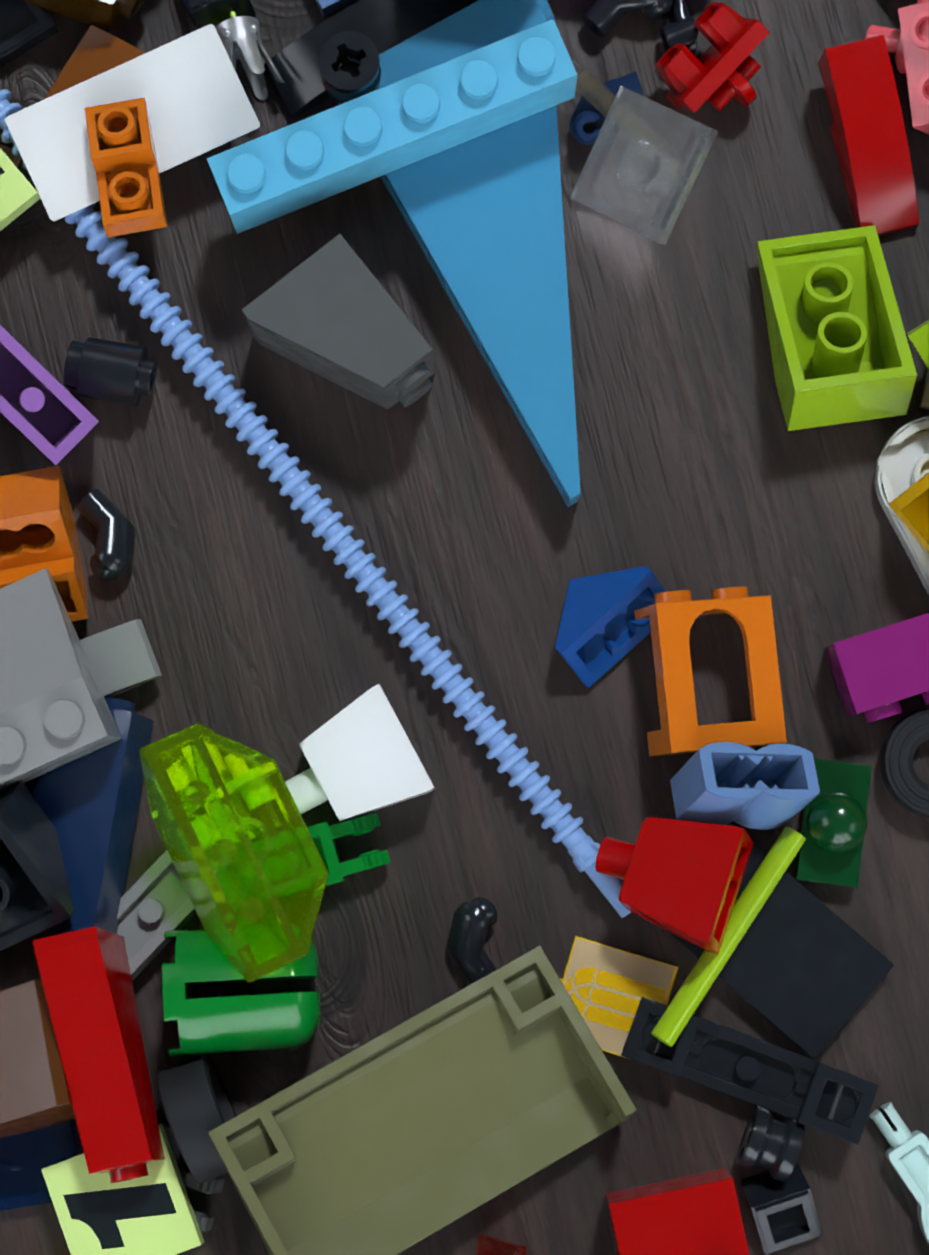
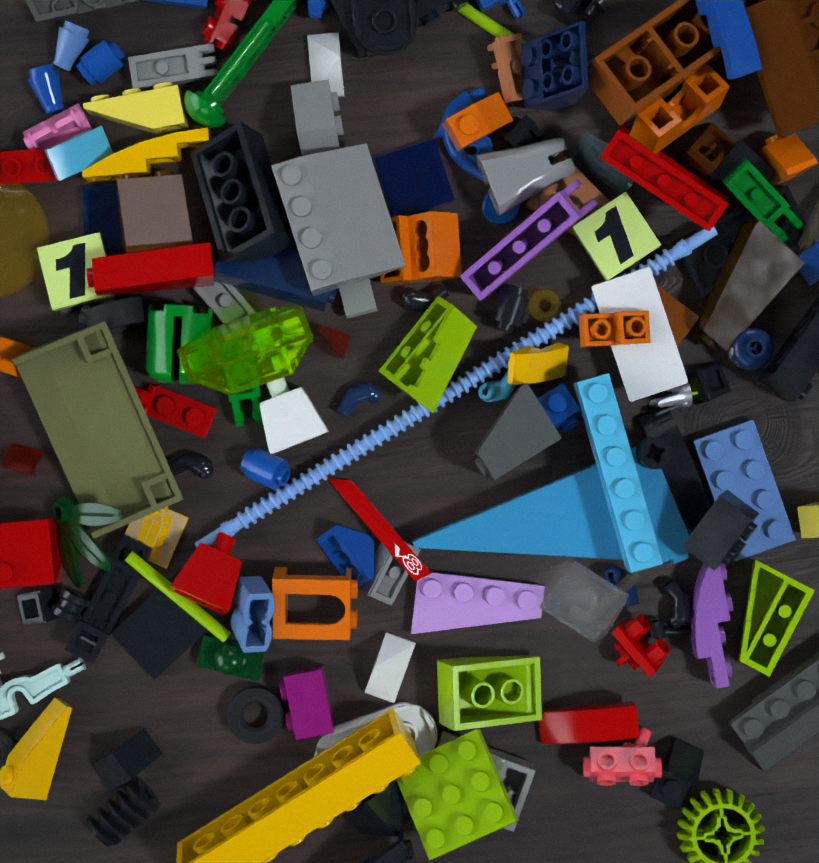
camera: 90 degrees right, 5 degrees up
(86, 296) = (552, 298): none -> clear yellow plate
(203, 689) = (337, 339): none -> clear red slope
(208, 305) = (537, 365): none -> yellow slope
(210, 507) = (430, 353): none -> lime wedge
(264, 373) = (496, 390): none -> medium azure arm
(282, 246) = (561, 408): none -> blue brick
(302, 637) = (358, 393): none -> dark blue arm
(371, 978) = (177, 409): none -> red hinge
(463, 795) = (265, 468): none -> blue brick
(552, 564) = (381, 528): none -> red sticker
(602, 1163) = (69, 517): none -> dark green plant
(620, 537) = (387, 576): none -> light grey slope
(671, 391) = (464, 601): none -> lavender wing
(813, 520) = (390, 667): none -> white slope

